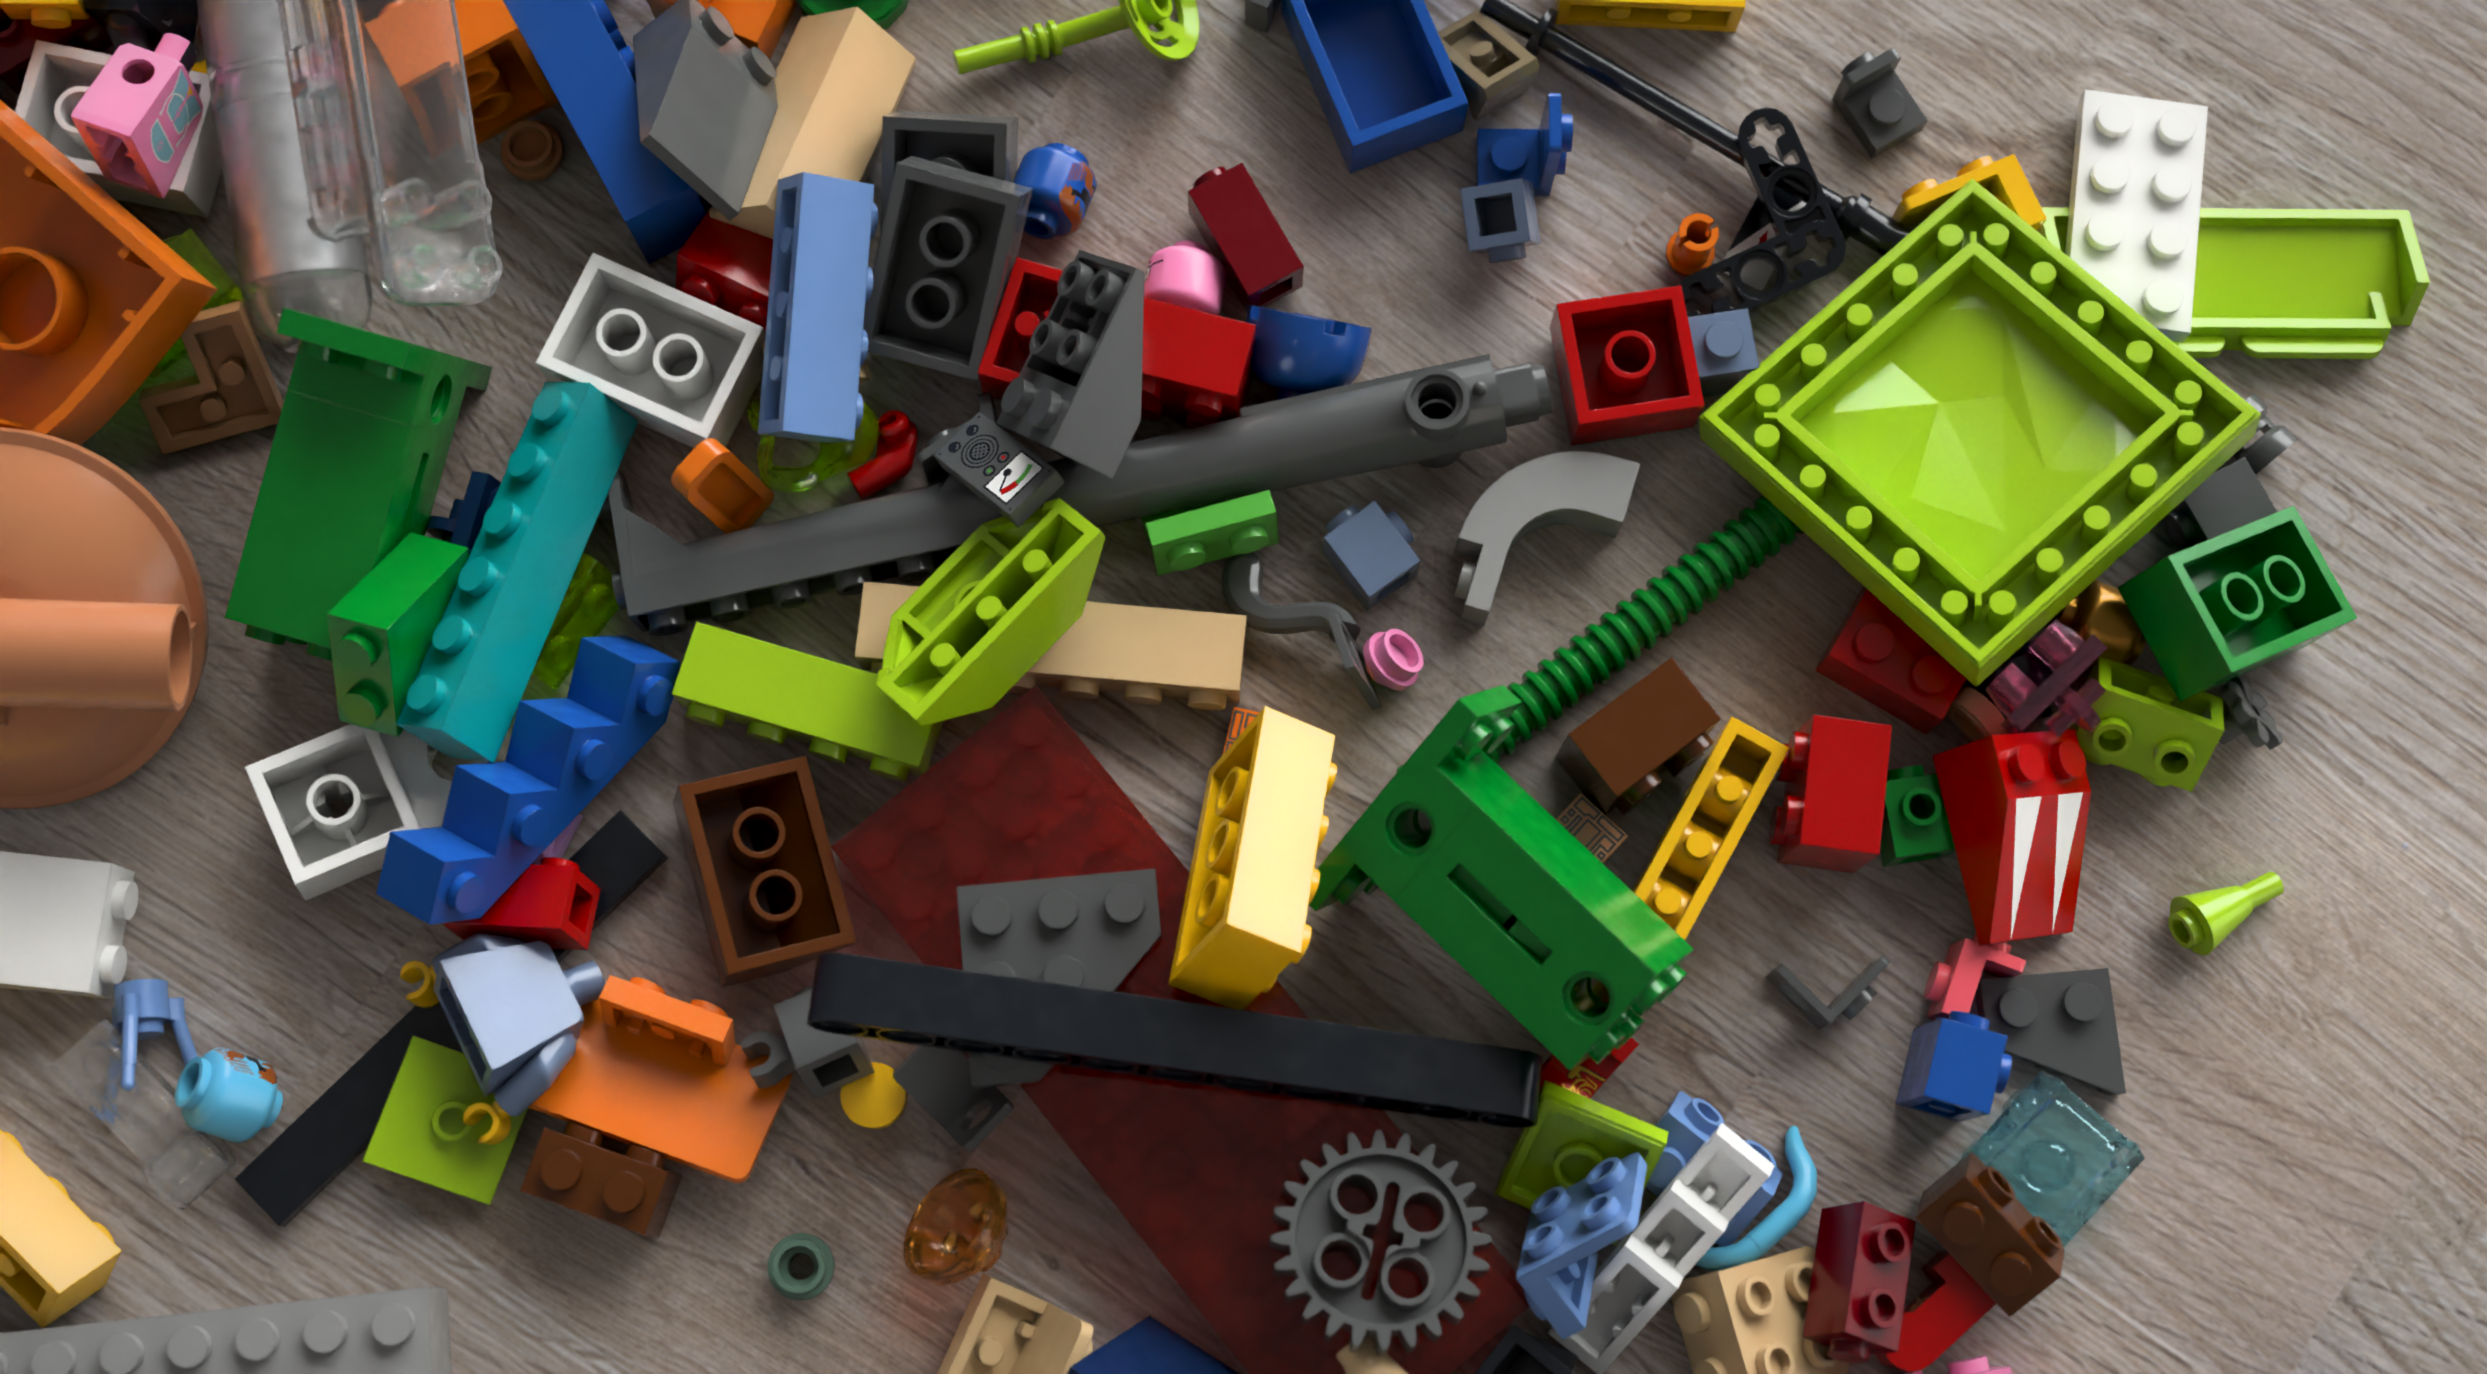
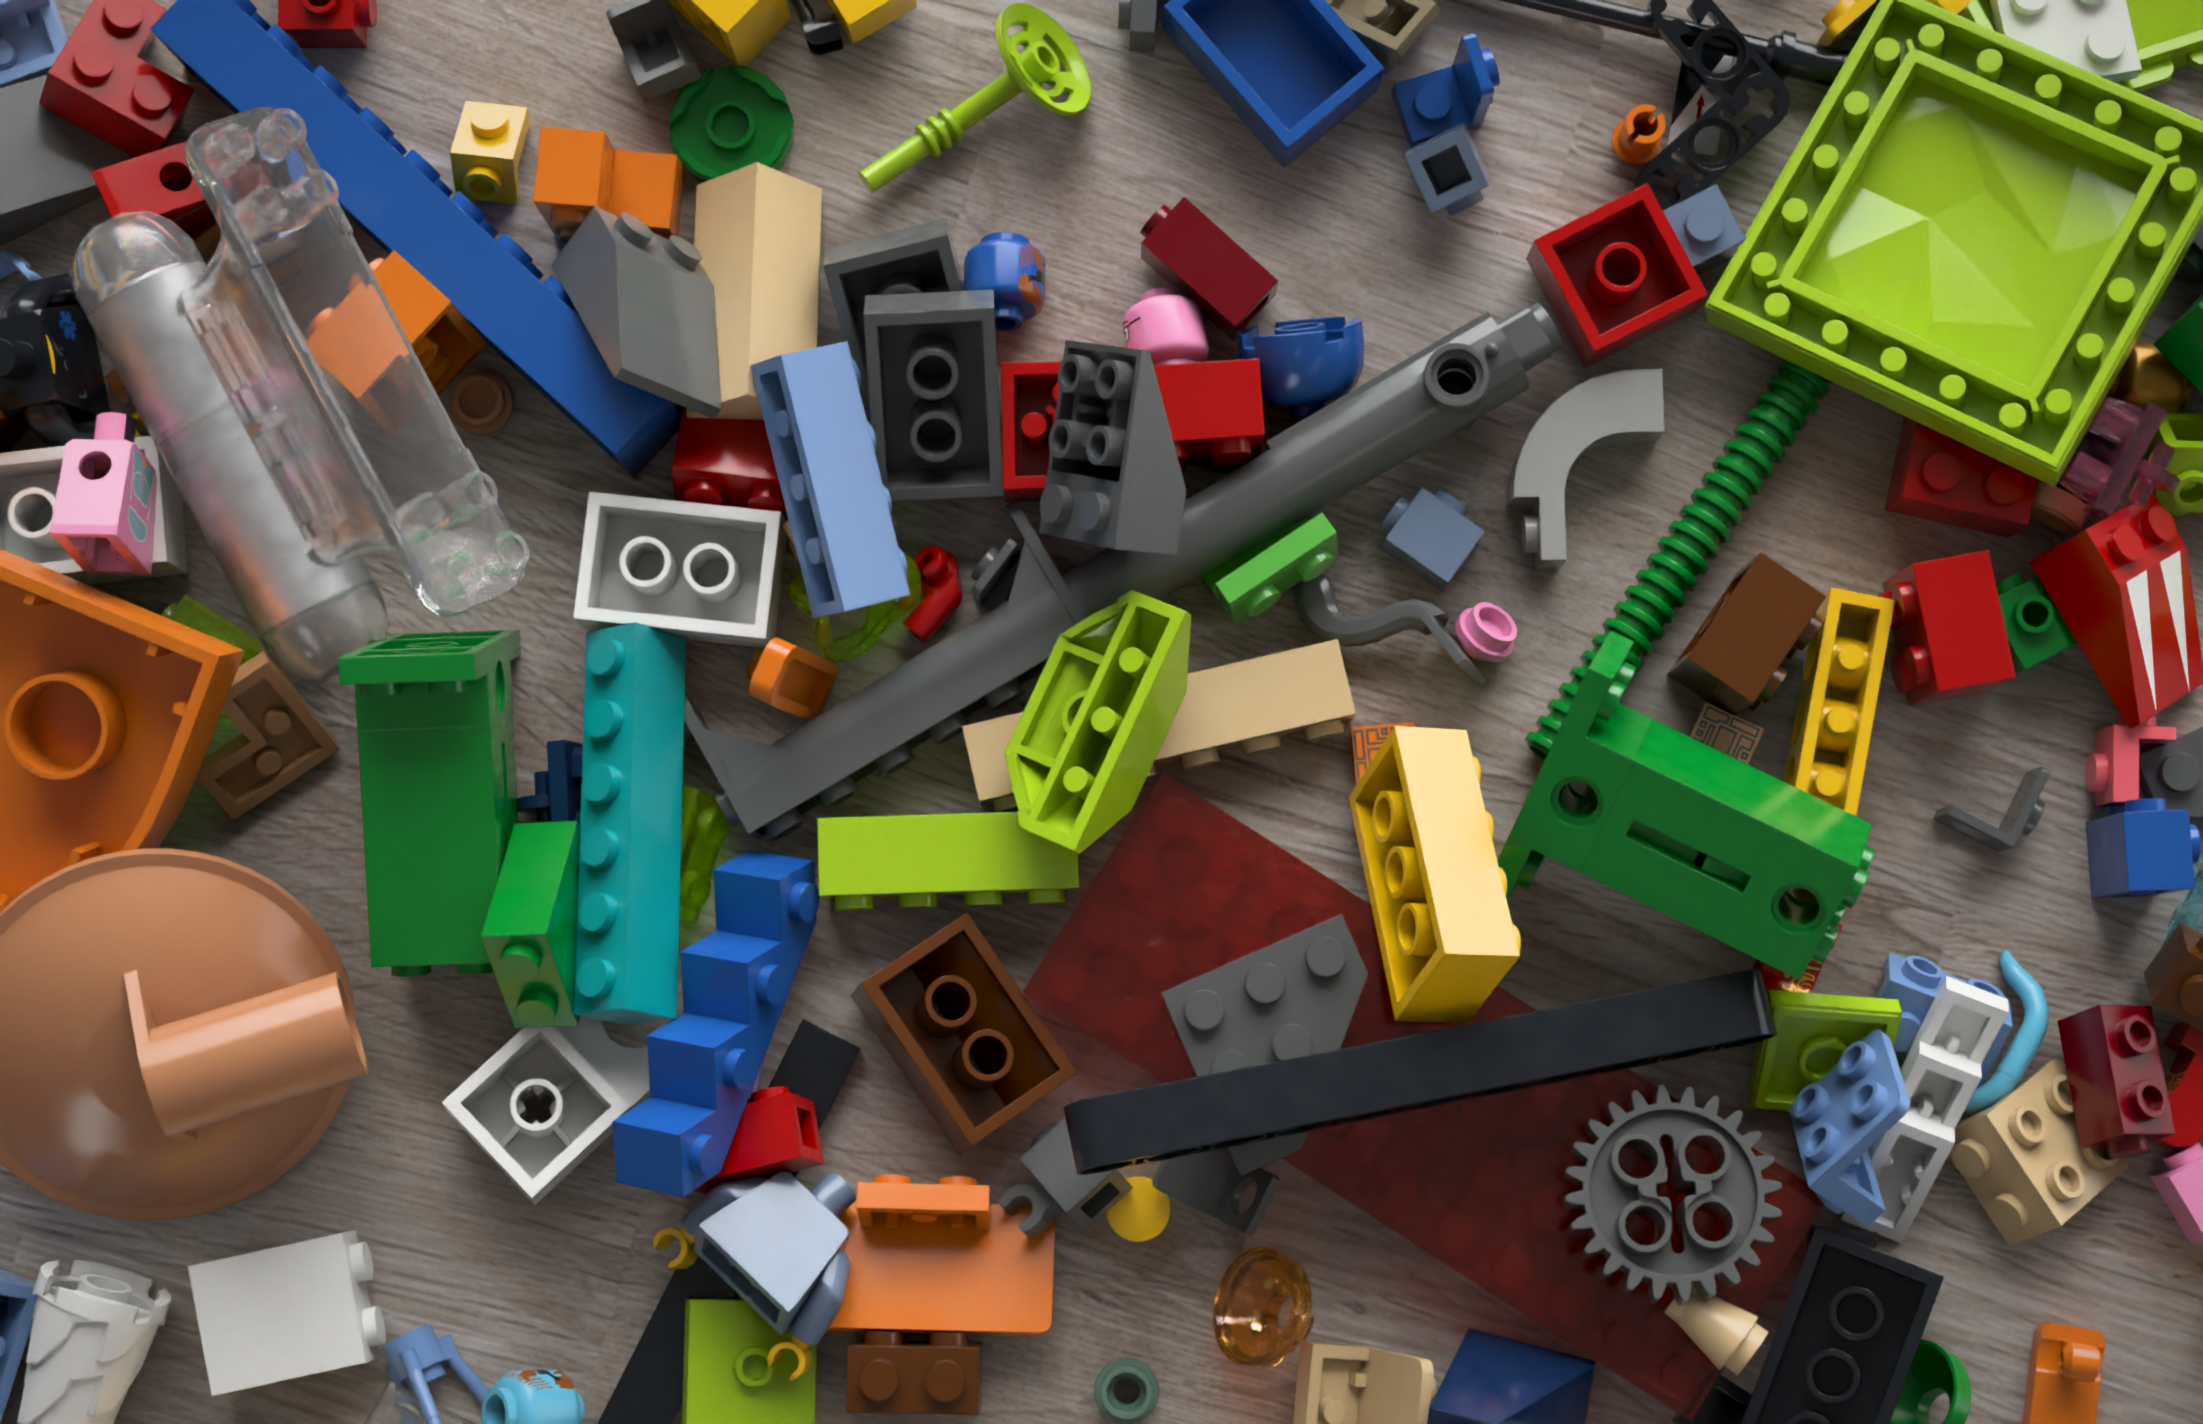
camera: 15 degrees left, 5 degrees up
(999, 469) = (1060, 578): dark grey tile -> none

